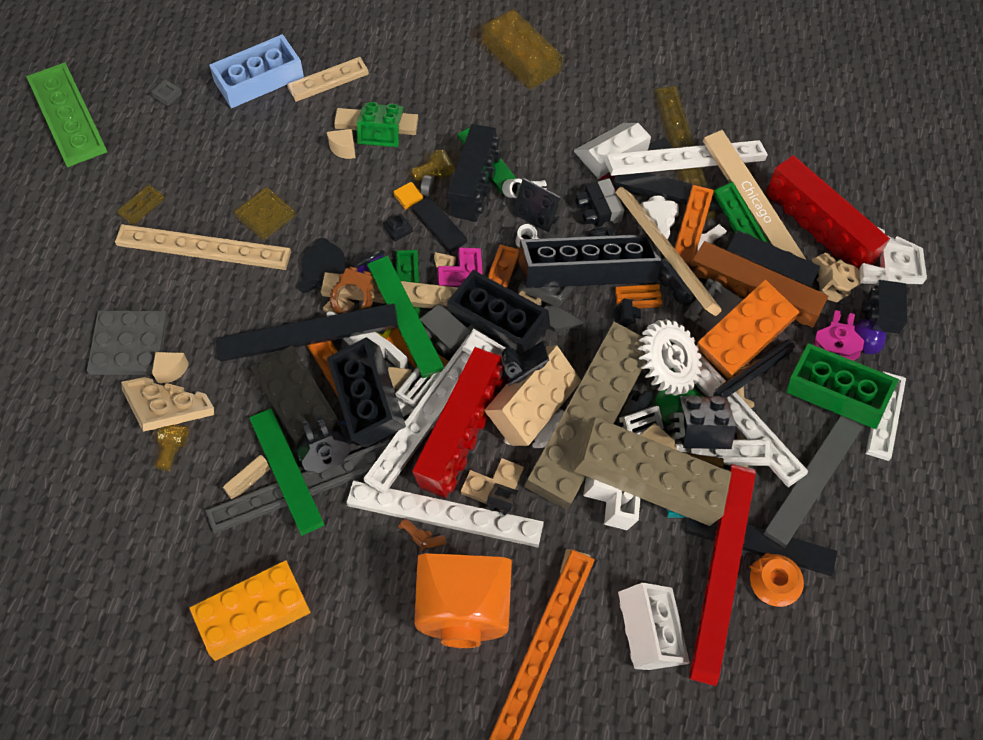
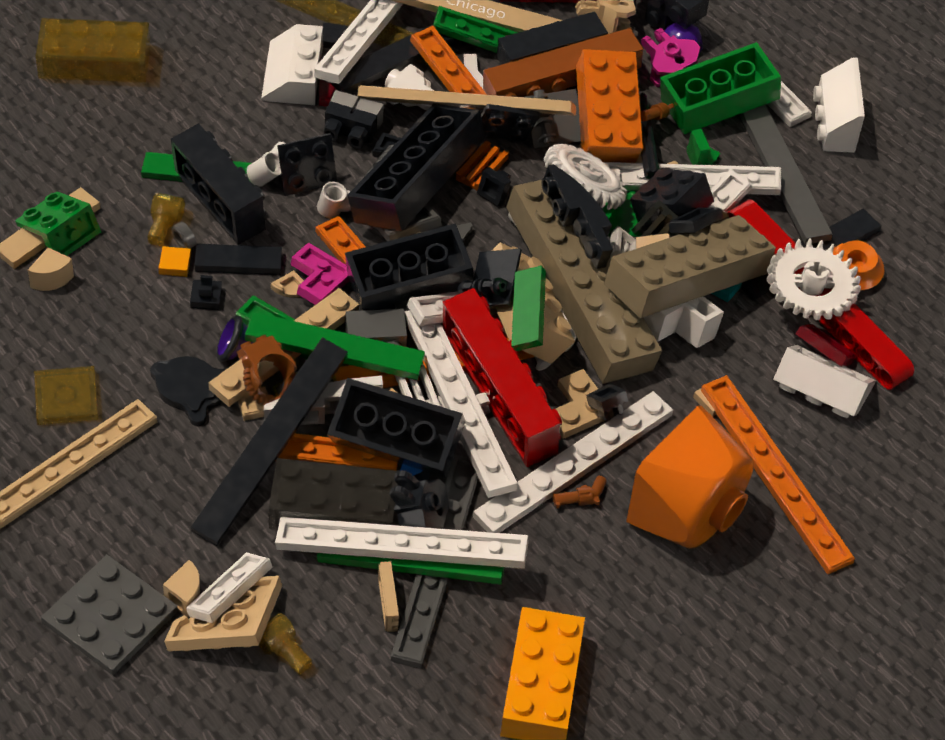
camera: 55 degrees left, 10 degrees down
(186, 388) = (229, 587): none -> white tile
(285, 460) = (402, 542): none -> white plate
(507, 398) = (528, 308): none -> green tile
(624, 373) = (578, 208): none -> black slope
(685, 607) = (826, 344): none -> dark red tile
(691, 448) = (695, 220): none -> black tile
(703, 541) = (820, 272): none -> white gear
(778, 416) = (699, 150): none -> green tile
(781, 363) = (656, 112): none -> dark orange piece
(908, 473) = (839, 107): none -> white slope

